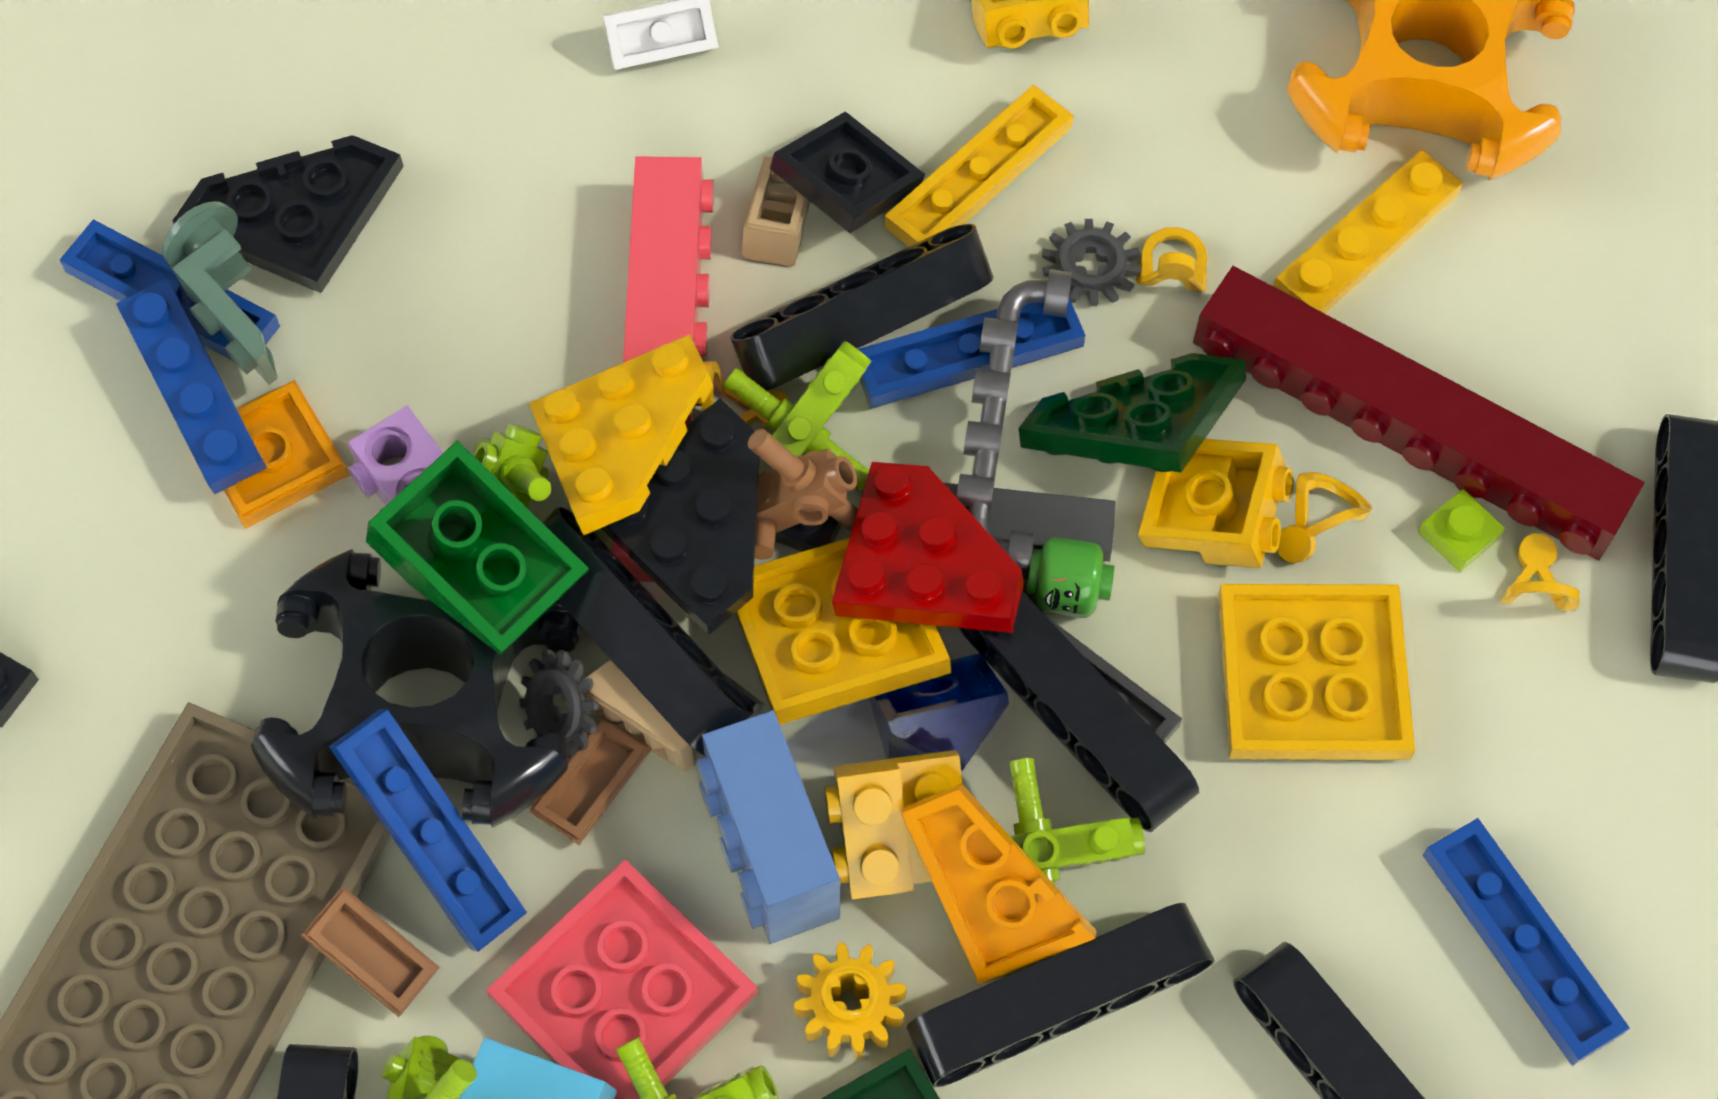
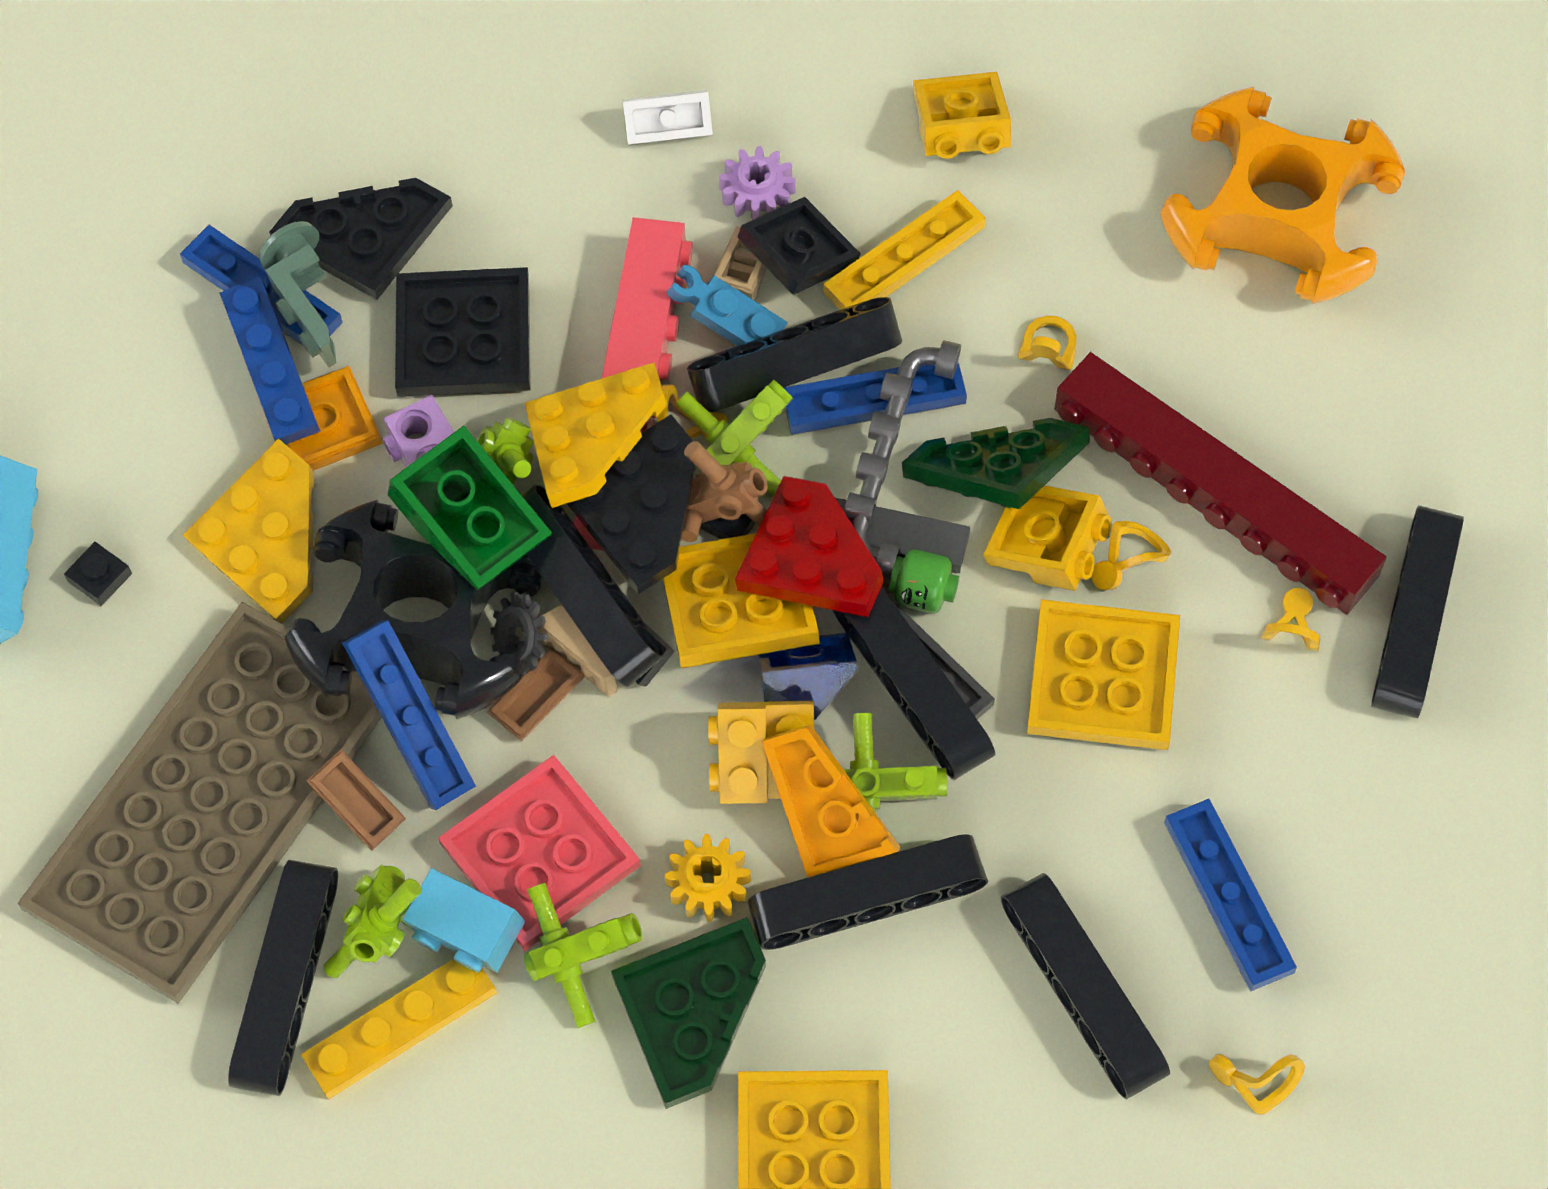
camera: 10 degrees right, 0 degrees up
(207, 606) = (264, 532): none -> yellow plate
(435, 322) = (462, 332): none -> black plate
(766, 258) = (725, 308): none -> dark azure plate
(768, 828) = (662, 743): medium blue brick -> none
(783, 100) = (757, 183): none -> lavender gear
(1106, 249) = (997, 328): dark grey gear -> none
(1370, 233) = (1209, 337): yellow plate -> none
(1461, 530) = (1240, 579): lime plate -> none

